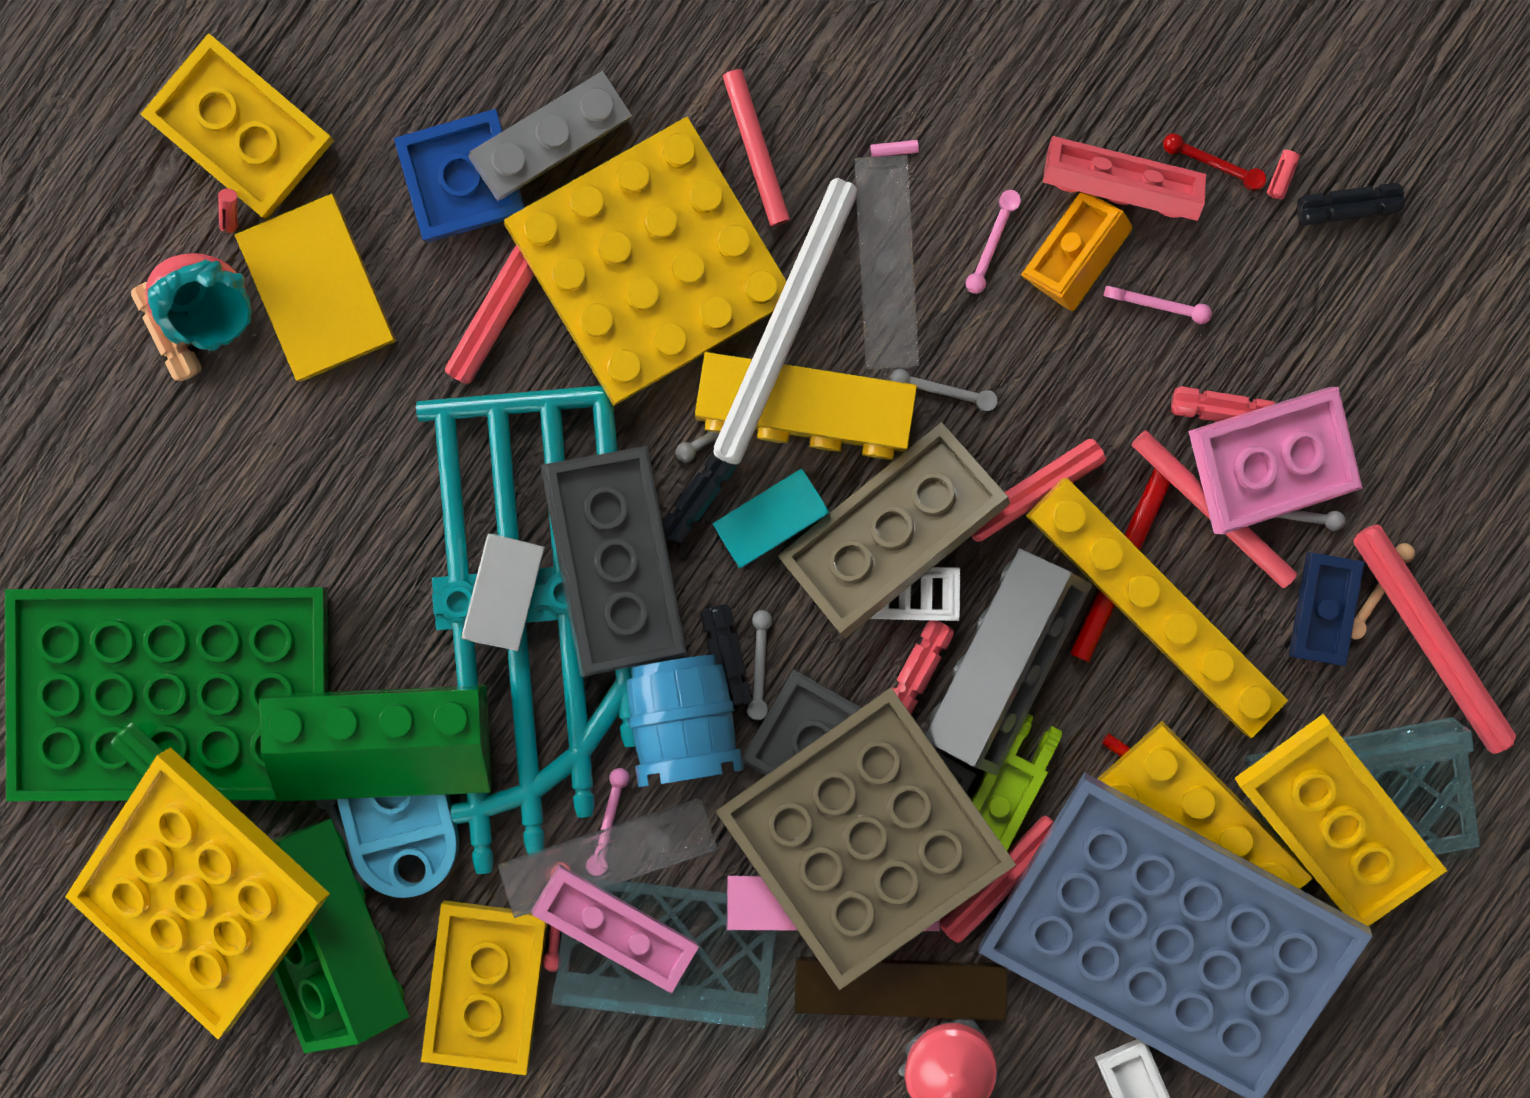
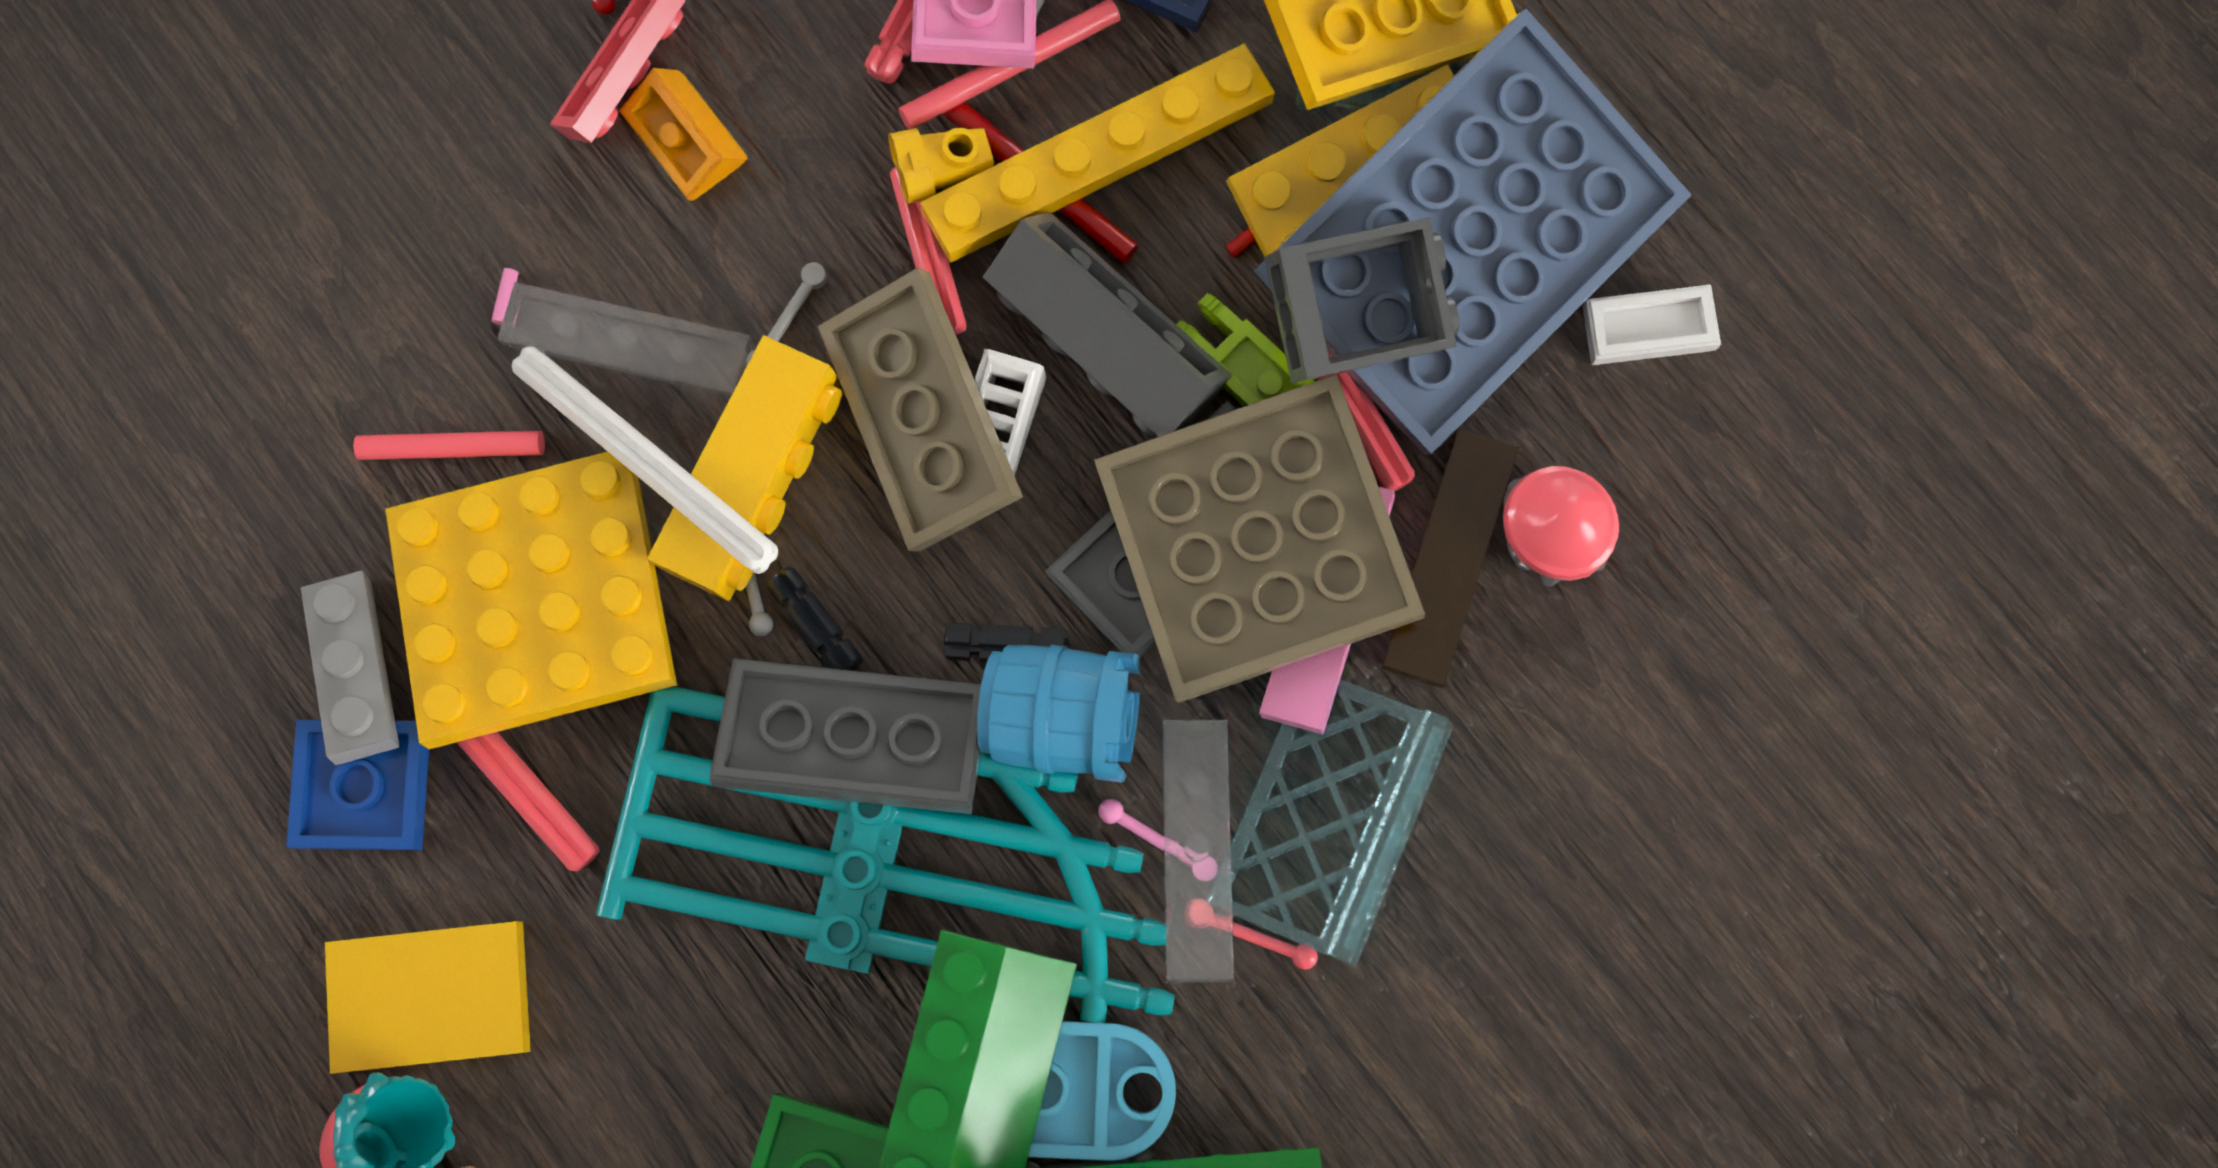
camera: 60 degrees left, 10 degrees down
(228, 210) = (299, 1072): coral piece -> none
(237, 126) = (208, 1031): yellow plate -> none
(484, 988) = (1312, 1047): yellow plate -> none
(502, 592) = (843, 873): white slope -> none
(615, 928) = (1279, 859): bright pink plate -> none
(758, 708) = (1078, 627): light grey hinge -> none
(770, 518) = (866, 547): teal slope -> none
(922, 662) = (1078, 421): coral axle -> none
(1008, 202) = (607, 192): bright pink hinge -> none
(1054, 825) = (1298, 310): none -> dark grey window
(1106, 470) = (929, 159): none -> yellow plate
(1200, 313) = (795, 24): bright pink hinge -> none

